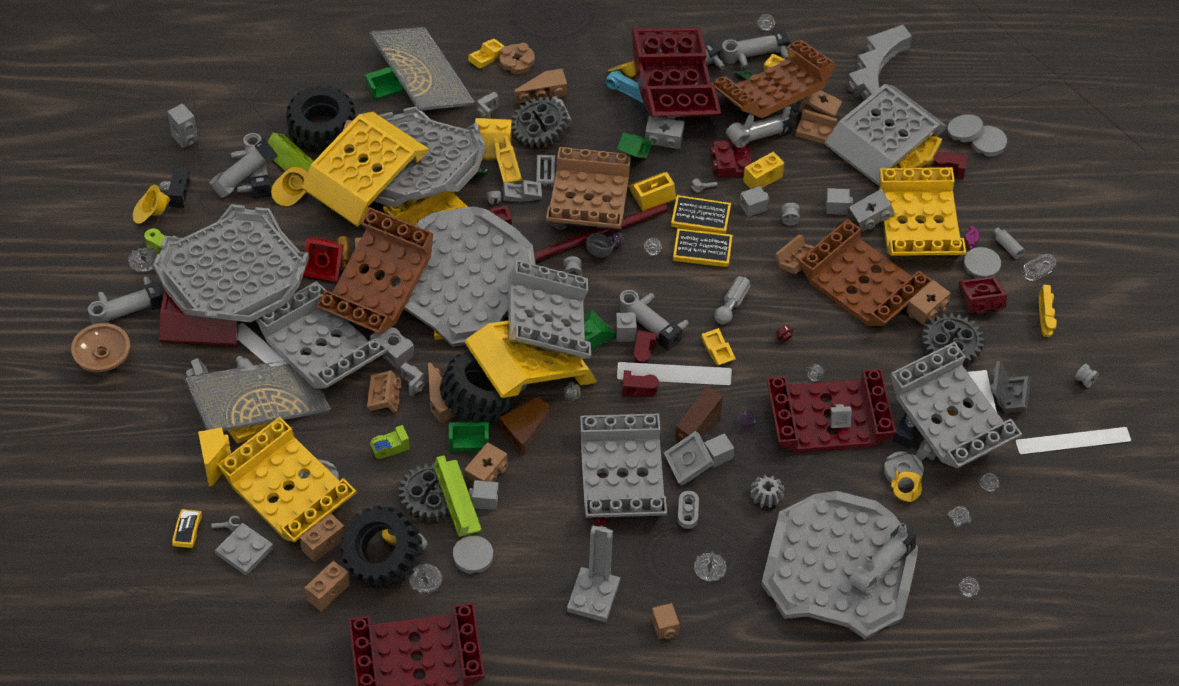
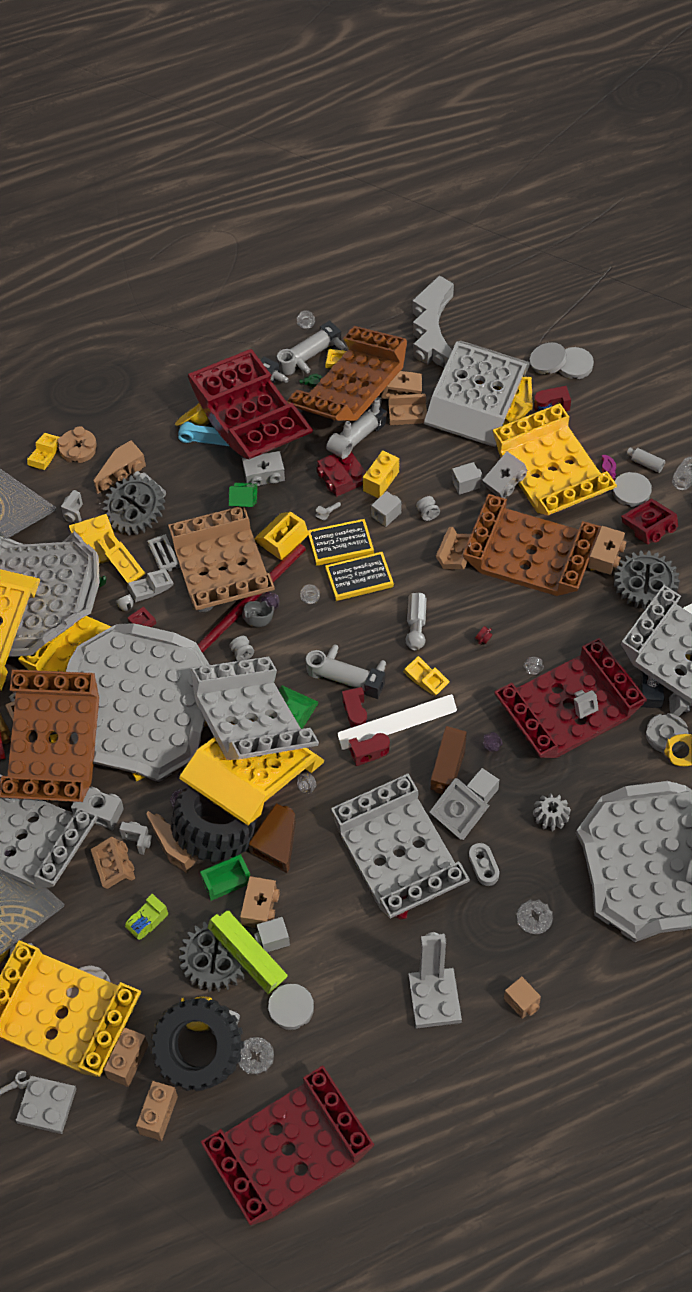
camera: 20 degrees left, 5 degrees up
(626, 327) = (326, 691): light grey brick -> none

